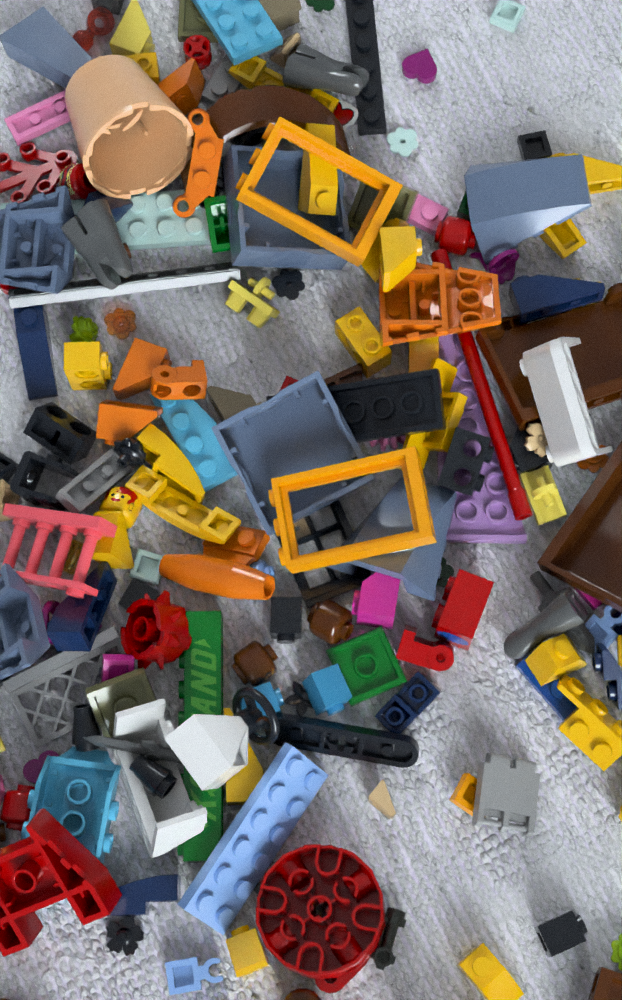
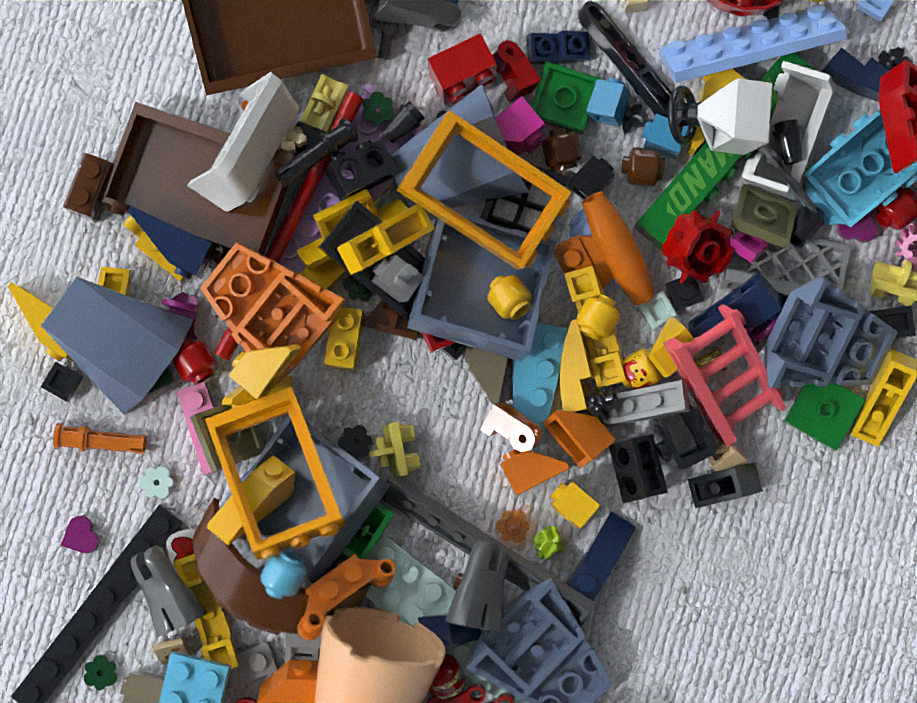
camera: 135 degrees left, 10 degrees up
(185, 508) = (598, 317): none -> yellow head
(246, 130) = (284, 574): none -> medium azure head
(265, 461) = (509, 297): none -> yellow head
(360, 398) = (397, 278): none -> light grey brick
(396, 412) = (385, 238): none -> yellow slope
(469, 531) = (403, 121): none -> black cone
(480, 125) = (85, 438): none -> orange pin
(500, 517) = (377, 101): none -> dark green plant
(505, 450) = (327, 145): none -> black pin

